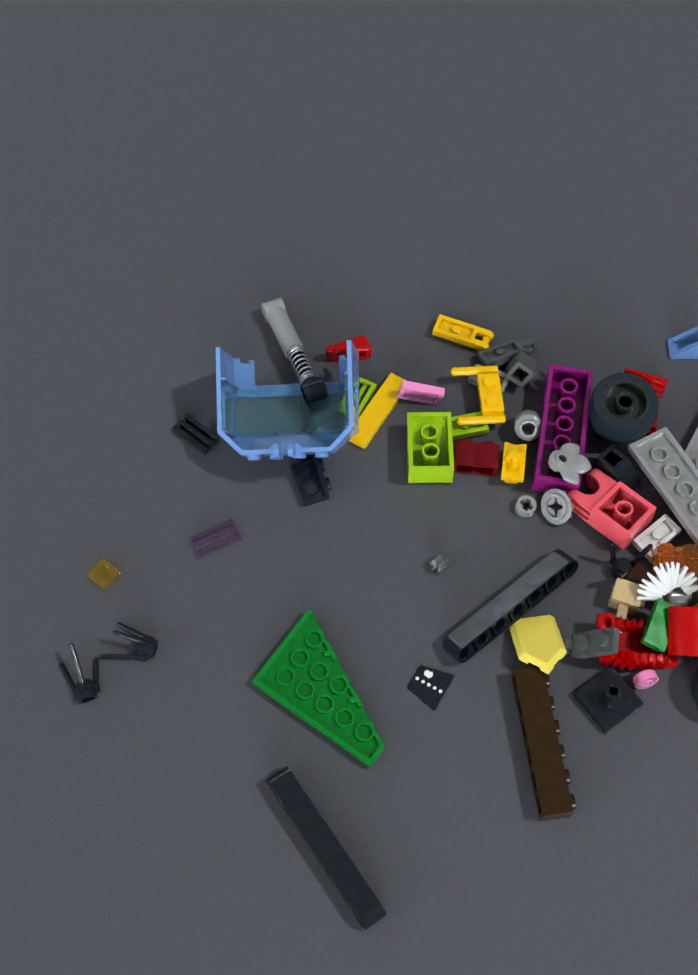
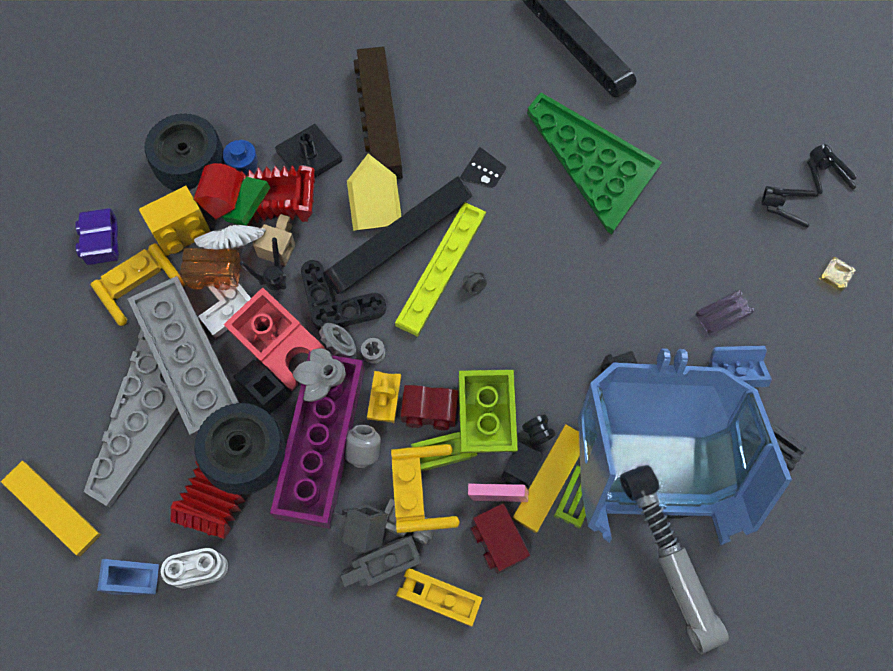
camera: 175 degrees right, 5 degrees up
(214, 485) = (744, 363): none -> medium blue bracket
(360, 342) = (588, 566): red slope -> none
(386, 439) = (538, 430): none -> black wheel
(397, 414) = (521, 466): none -> black brick
(418, 364) = (499, 538): none -> dark red brick
(469, 580) = (440, 269): none -> neon yellow tile
(569, 543) = (328, 307): none -> black beam
(593, 643) = (319, 181): dark grey hinge -> none
(642, 348) = (194, 568): none -> white brick
(645, 679) = (270, 162): bright pink tile -> none
(676, 689) = (241, 156): none -> blue piece

